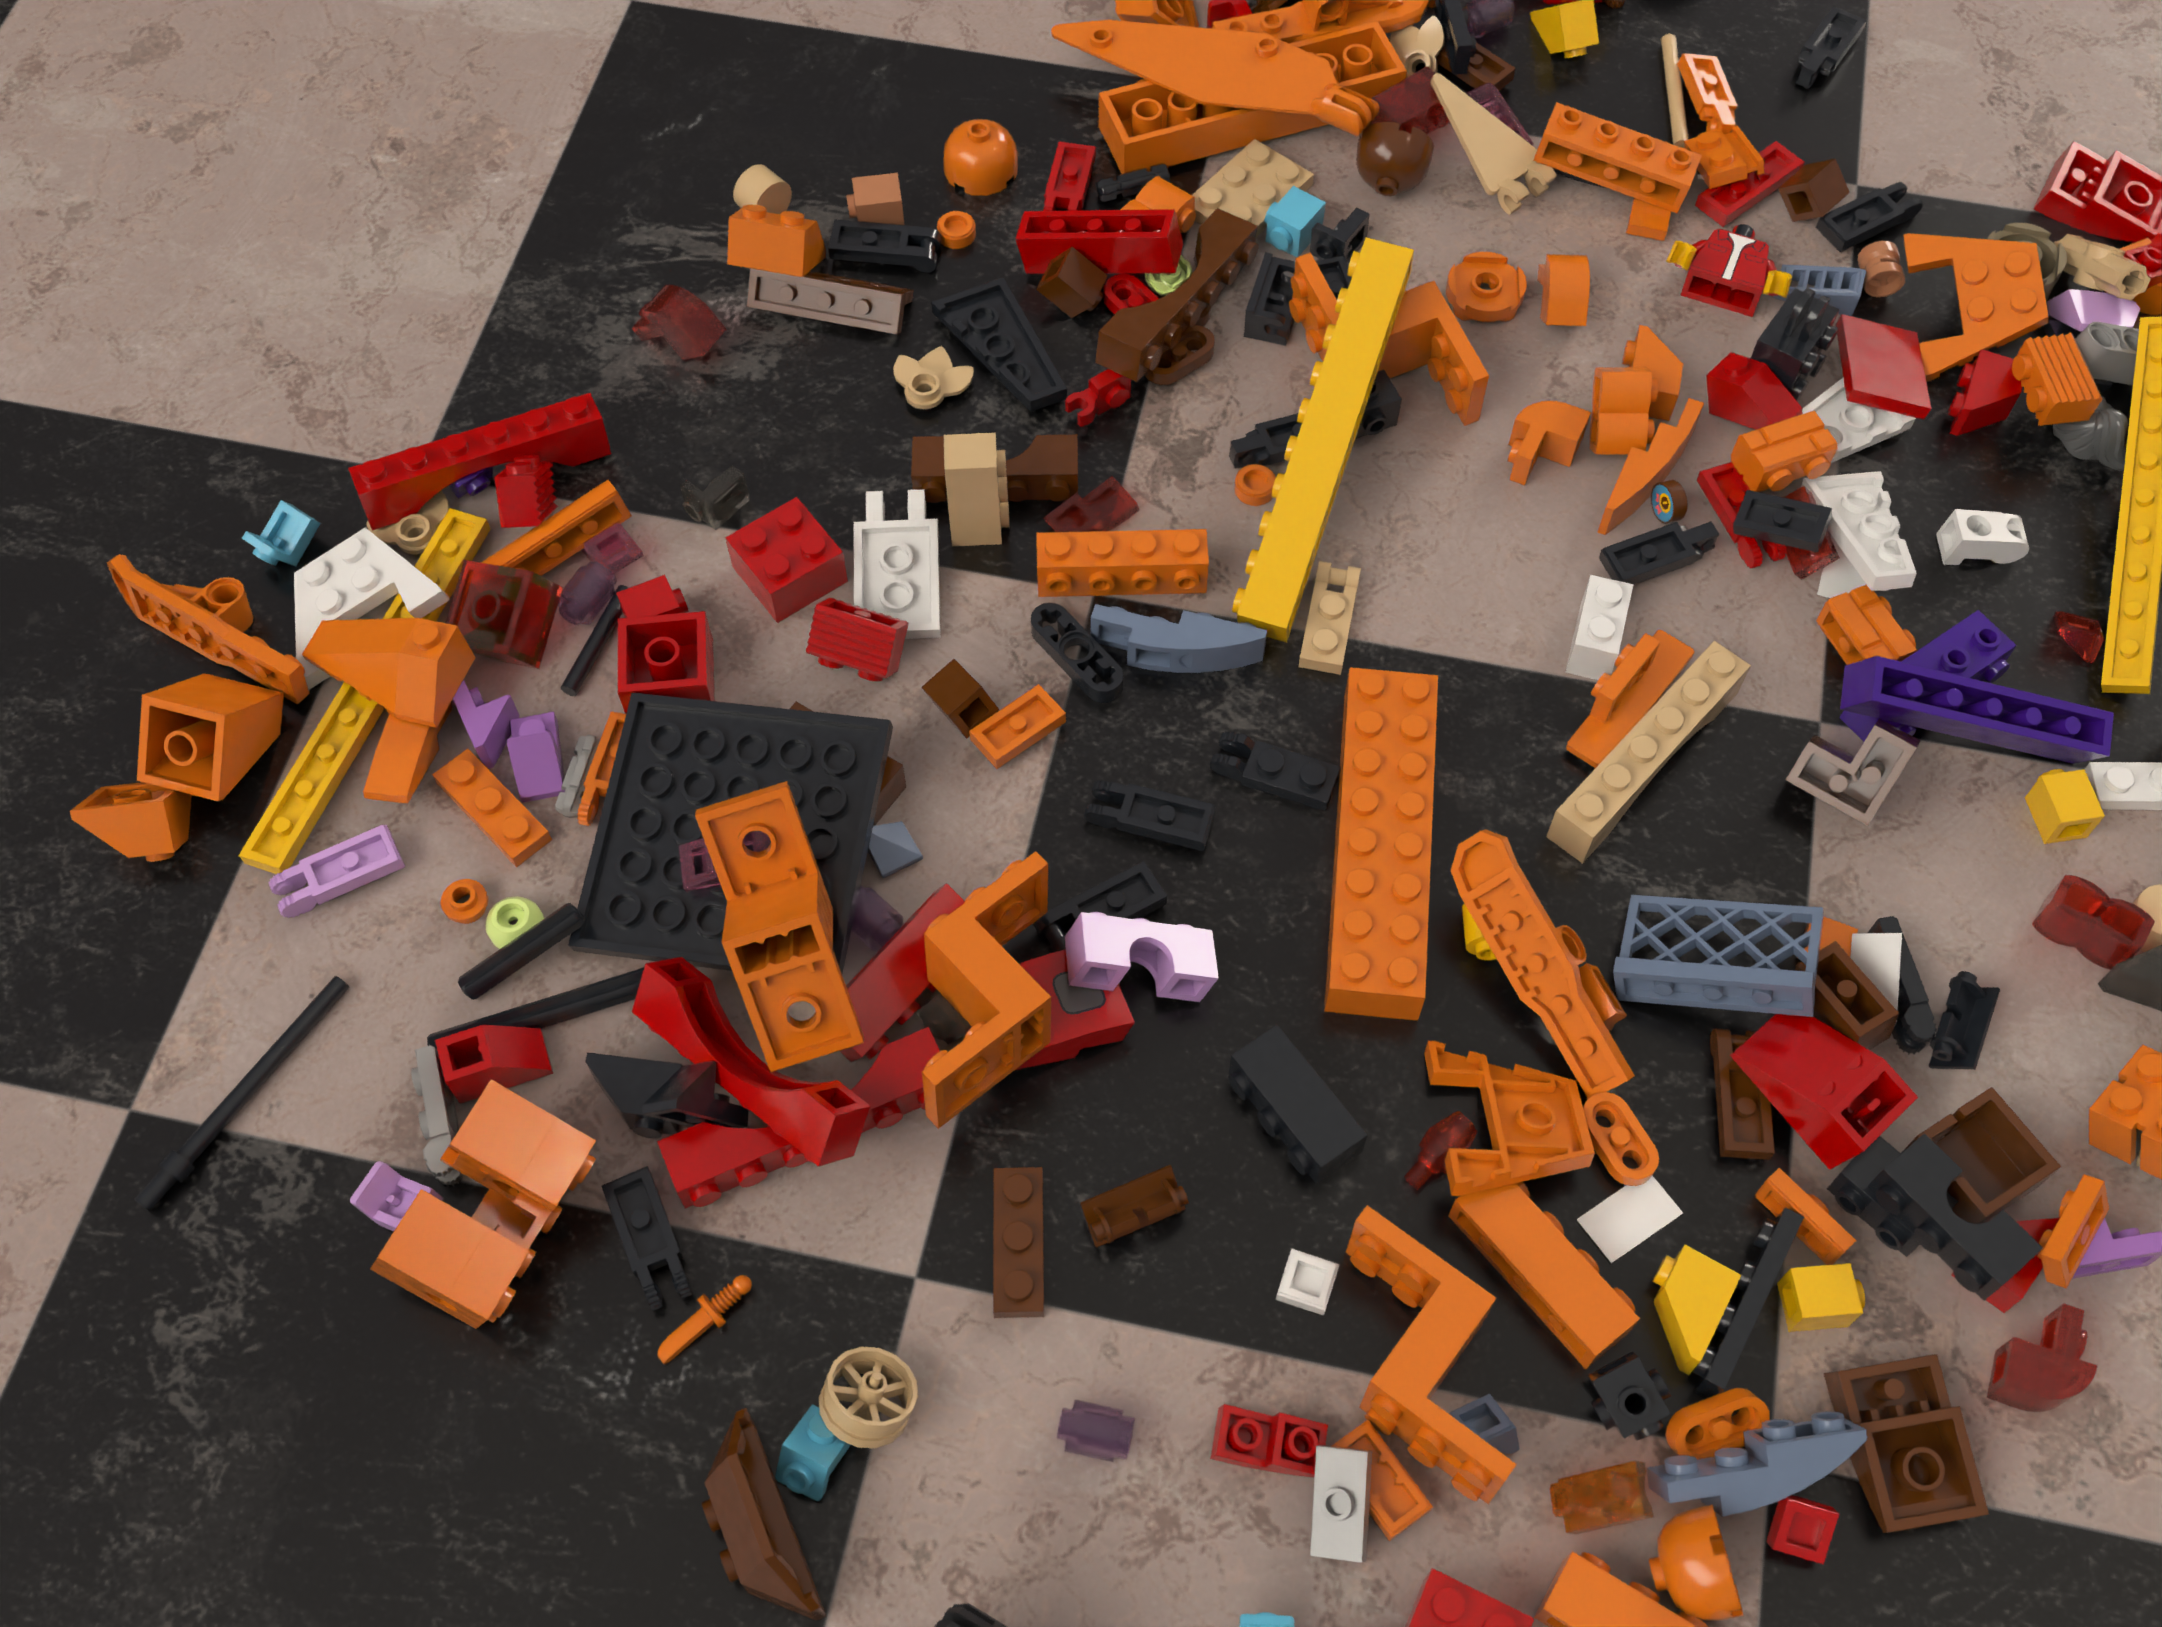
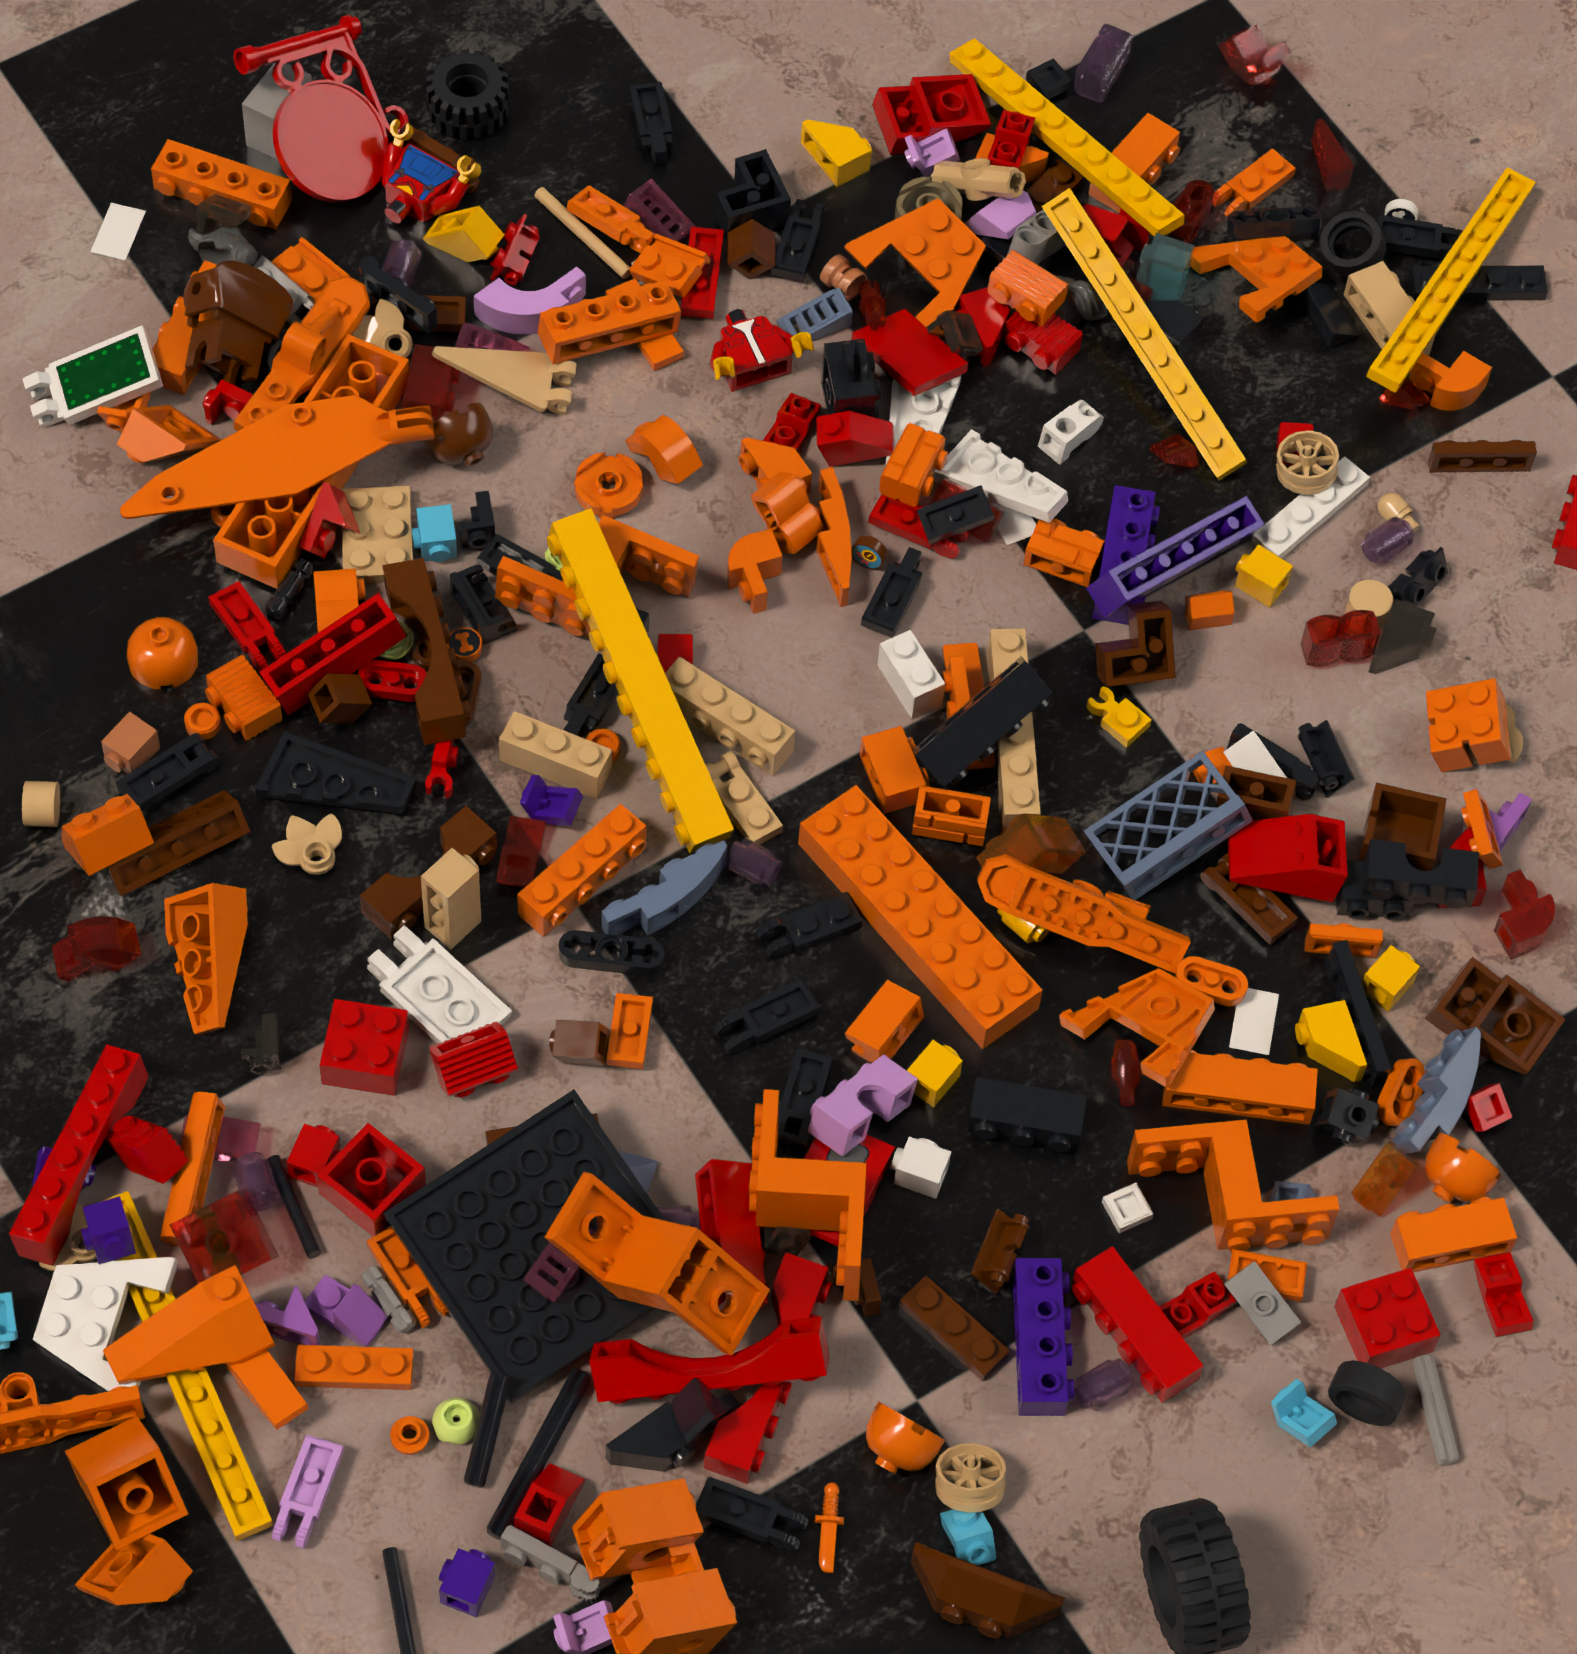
camera: 50 degrees left, 0 degrees up
(358, 1064) = (466, 1581): none -> dark purple brick
(422, 529) = (107, 1230): none -> dark purple brick
(776, 376) = (208, 938): none -> orange wedge
(846, 1298) = (900, 1440): none -> orange cylinder
(973, 1127) = (868, 1289): none -> reddish brown bracket
(997, 226) = (243, 697): none -> orange brick
(1084, 1326) = (1040, 1337): none -> dark purple brick
(1145, 1063) = (921, 1166): none -> white brick
(1154, 490) = (550, 803): none -> dark purple bracket
(1187, 1404) = (1136, 1325): none -> red brick
(1202, 456) = (555, 754): none -> tan brick
(1215, 142) = (329, 512): none -> red slope
(1226, 322) = (466, 644): none -> tile
(1249, 989) = (936, 1072): none -> yellow brick
(1251, 908) = (885, 1022): none -> orange hinge
(1281, 675) = (754, 862): none -> clear purple brick
(1386, 537) = (730, 717): none -> tan brick
(1398, 458) = (672, 647): none -> red slope
(1496, 695) = (893, 768): none -> orange brick
(1506, 775) = (951, 815): none -> orange brick
(1540, 88) = (520, 310): none -> lavender arch
(1564, 865) = (1037, 842): none -> clear orange brick
(1609, 57) = (518, 240): none -> red hinge
(1615, 706) = (982, 722): none -> black brick
(1707, 352) = (793, 422): none -> red slope
(1759, 93) = (653, 193): none -> clear pink slope
(1775, 828) = (1120, 720): none -> yellow plate
(1863, 152) = (757, 195): none -> black brick
(1886, 305) = (872, 304): none -> clear red axle
(1946, 375) = (959, 332): none -> clear smoke bracket
(1971, 796) = (1209, 609): none -> orange piece
(1982, 169) = (836, 150): none -> yellow slope
(2032, 451) = (1047, 345): none -> red brick
(2087, 224) = (931, 151): none -> lavender bracket

